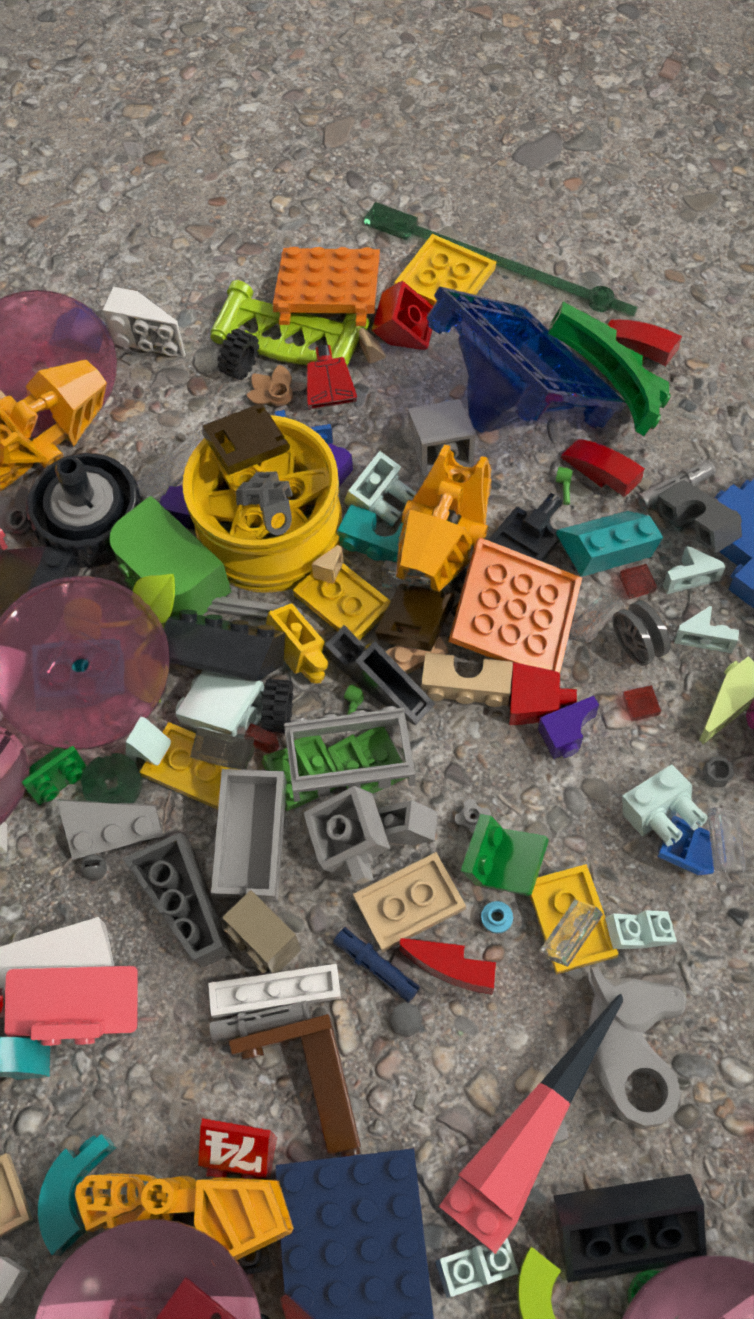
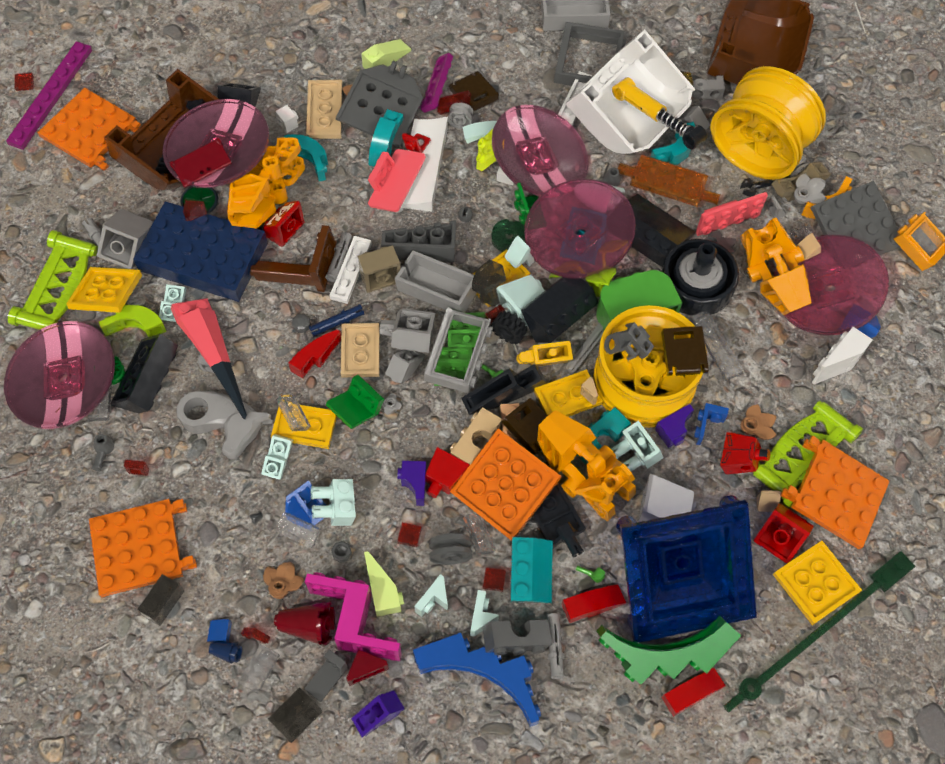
camera: 110 degrees right, 0 degrees up
(101, 826) = (482, 223): light grey wing -> none
(238, 354) = (790, 406): black tyre -> none
(497, 926) = (327, 394): medium azure plate -> none

